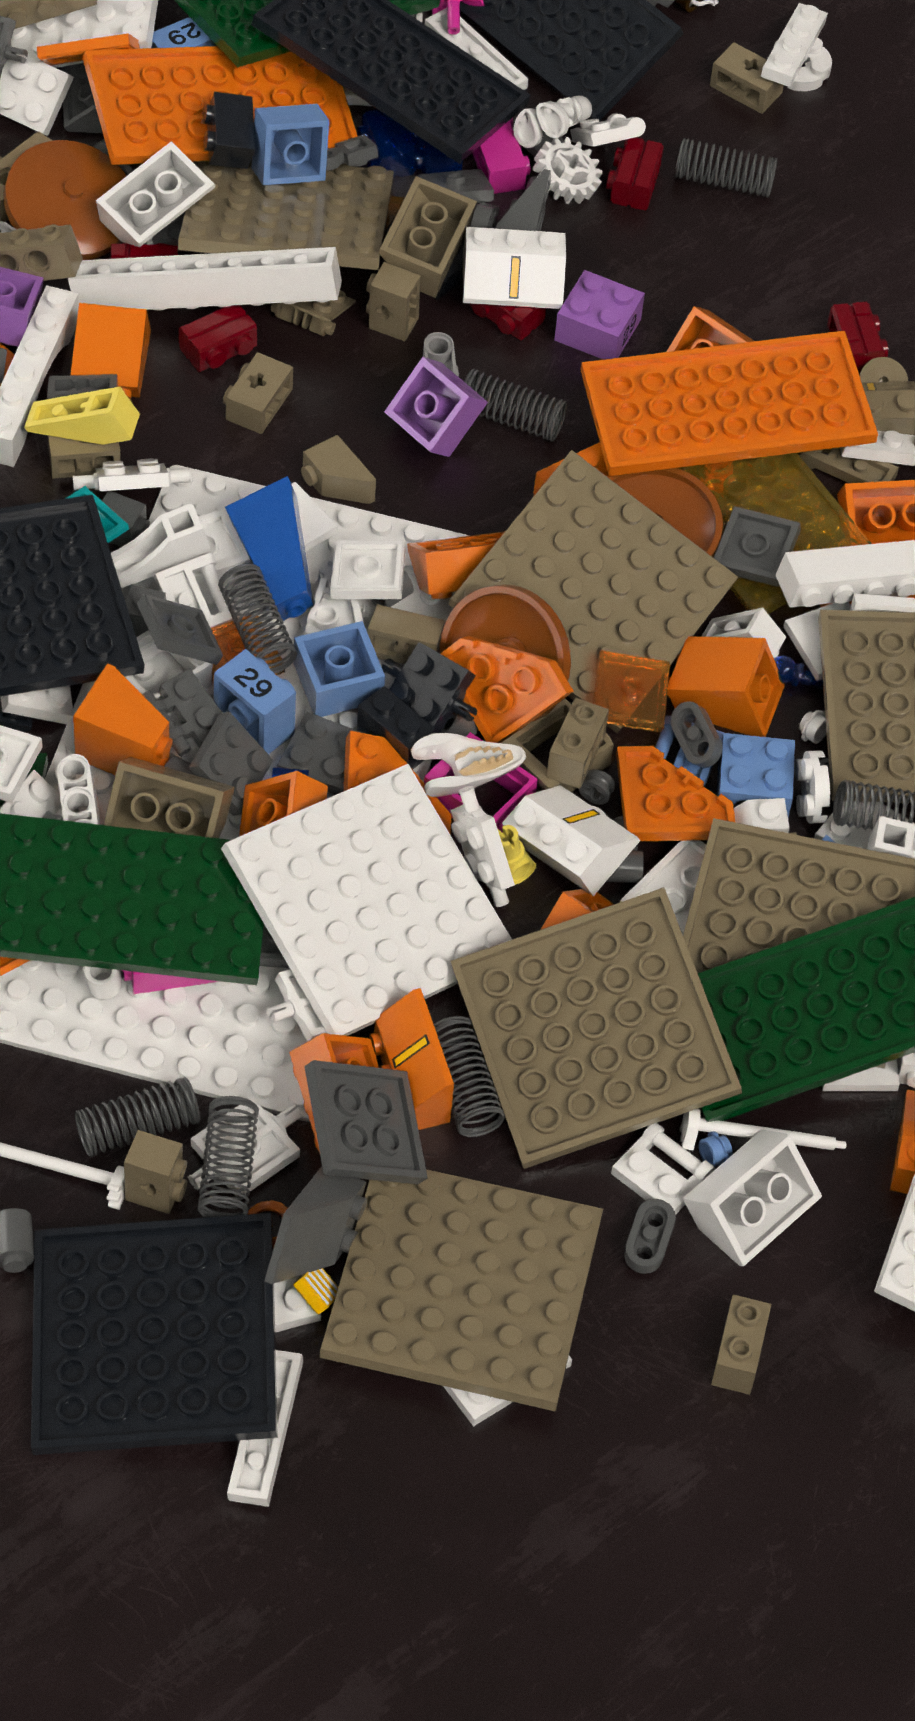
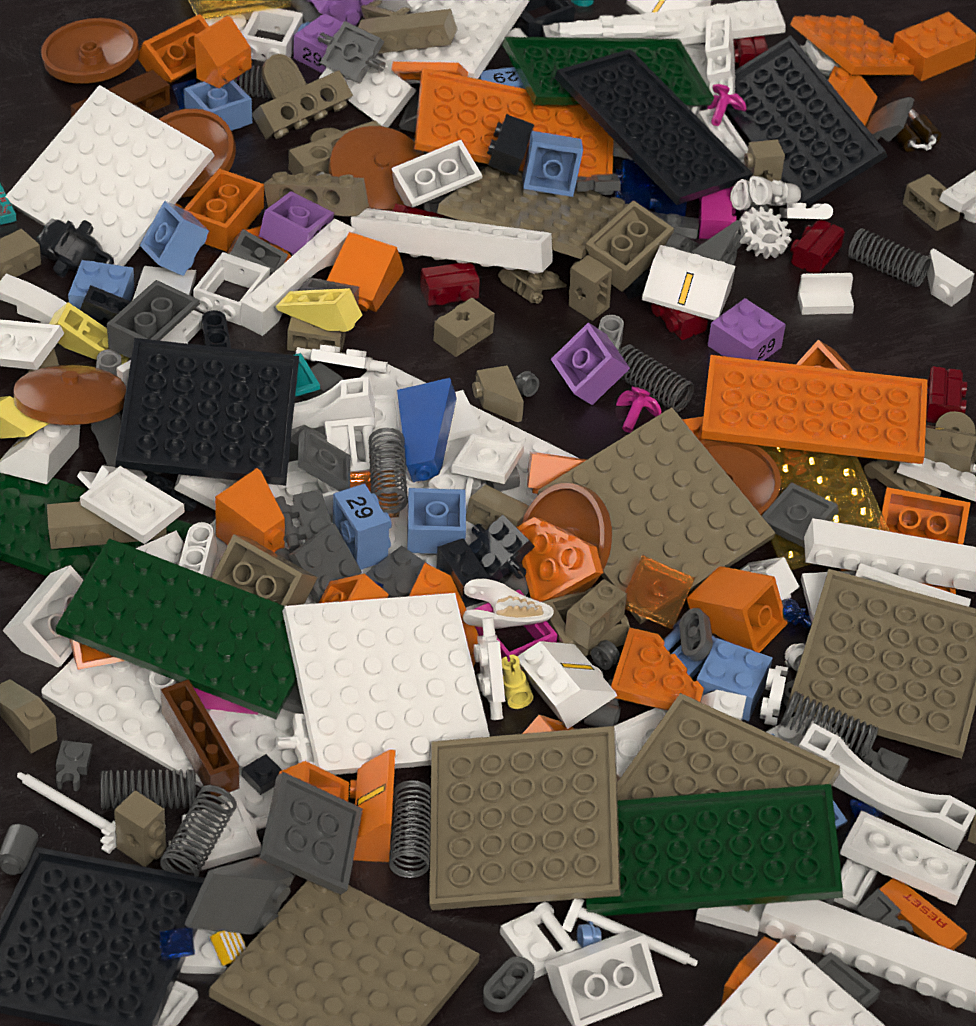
camera: 20 degrees right, 10 degrees down
(28, 1105) = (72, 761): none -> dark grey plate
(176, 1035) = (199, 737): none -> reddish brown brick
(263, 1306) = (177, 943): none -> clear blue slope
(264, 1057) = (261, 774): none -> black plate
(365, 449) = (527, 383): none -> dark grey plate
(508, 437) = (638, 399): none -> dark pink plant
(539, 74) = (765, 159): none -> dark tan brick
(669, 236) = (826, 293): none -> white panel
(802, 178) = (948, 279): none -> white slope

